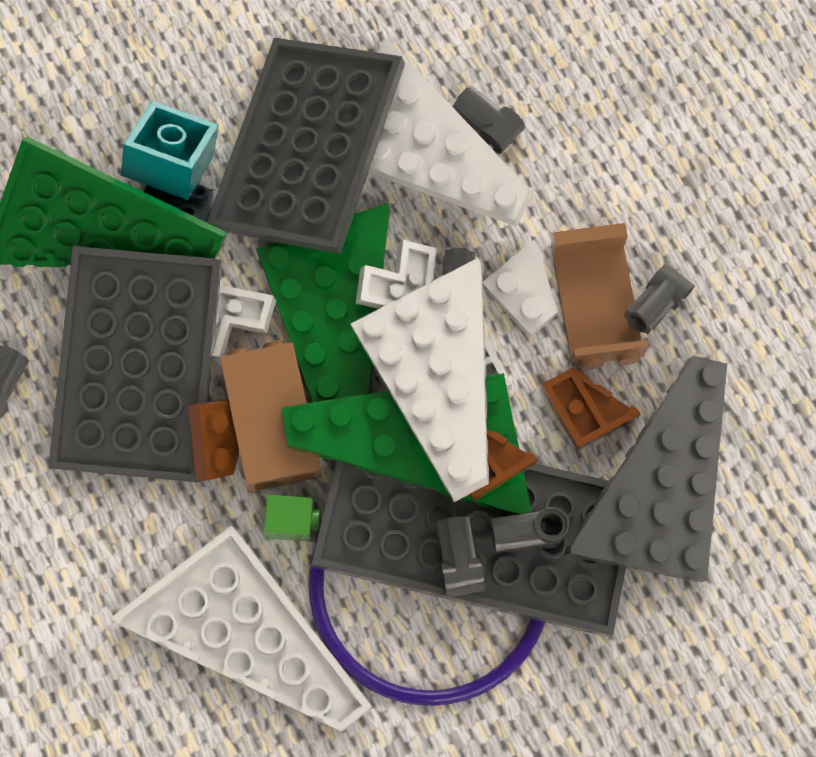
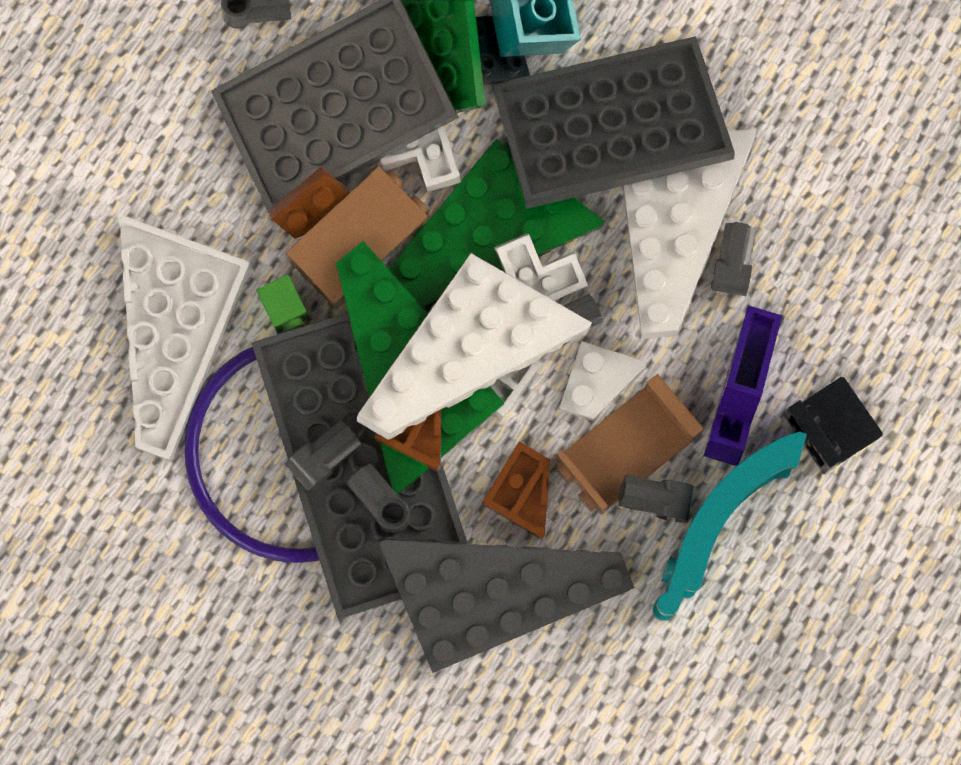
camera: 60 degrees right, 5 degrees up
(604, 172) = (743, 386): none -> dark purple slope
(678, 125) = (834, 424): none -> black bracket
(708, 261) = (687, 569): none -> teal windscreen

